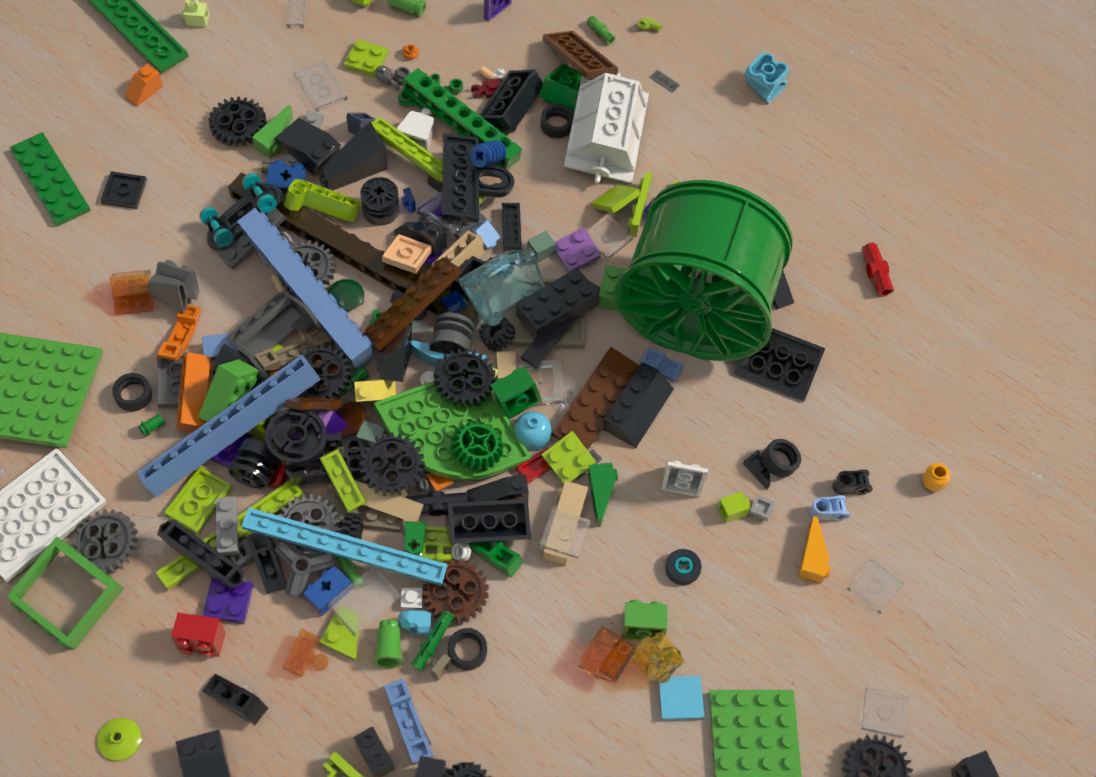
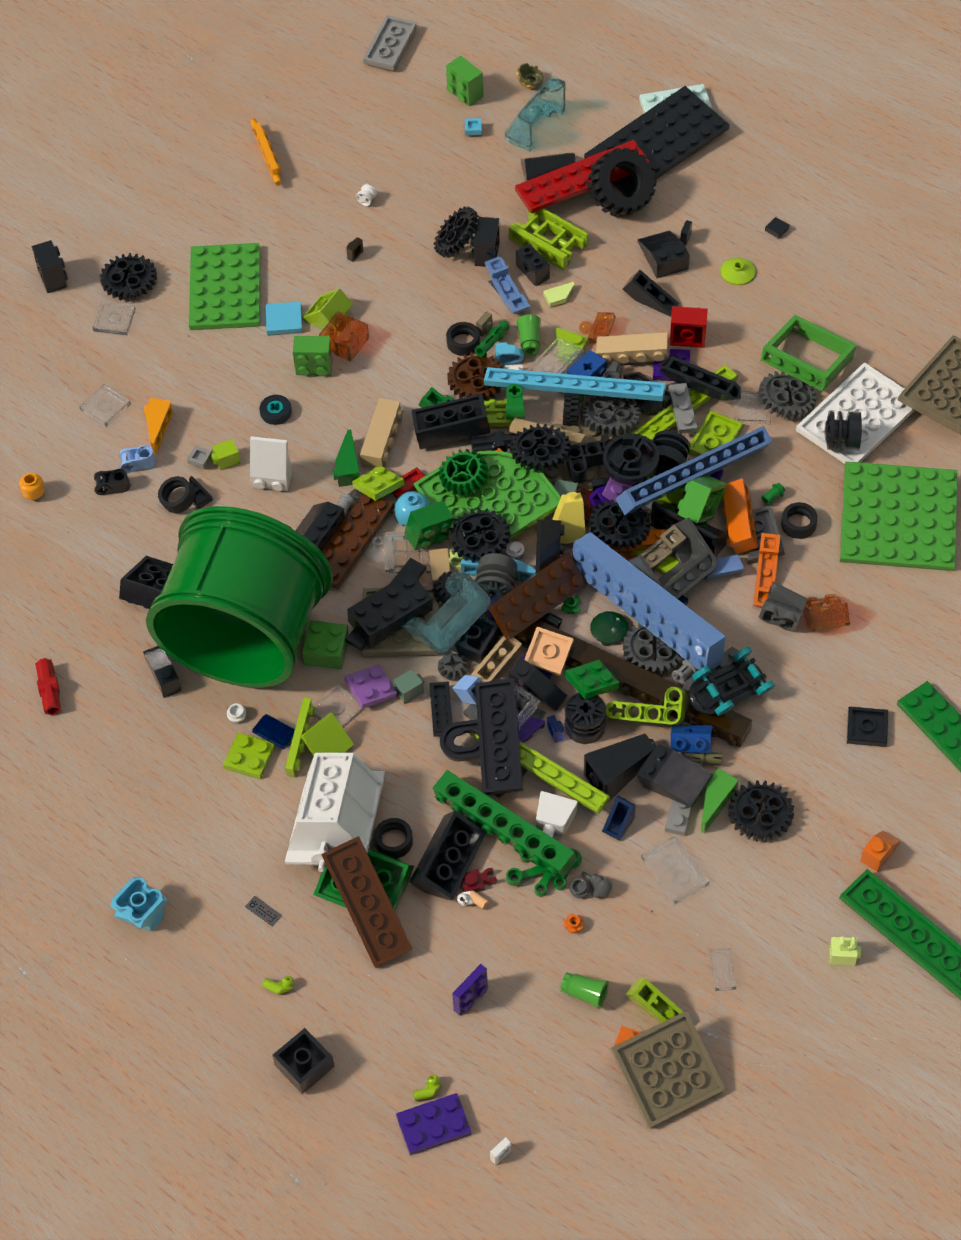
camera: 175 degrees left, 5 degrees down
(55, 467) = (842, 430): none -> black wheel
(269, 610) = (634, 347): none -> tan brick
(312, 403) = (612, 489): reddish brown tile -> none
(342, 480) = (583, 436): lime tile -> none
(346, 712) = (558, 294): none -> yellowish green tile
(366, 57) = (626, 912): lime plate -> none
(369, 219) = (592, 679): none -> green plate
(488, 153) = (471, 760): blue piece -> none
(502, 489) = (432, 453): black slope -> none
(564, 533) = (381, 413): clear tile -> none
(601, 30) = (340, 972): bright green pin -> none
(605, 438) = (345, 502): none -> light grey bush
(629, 701) = (326, 307): none -> lime slope
(657, 657) = (302, 325): clear yellow brick -> none

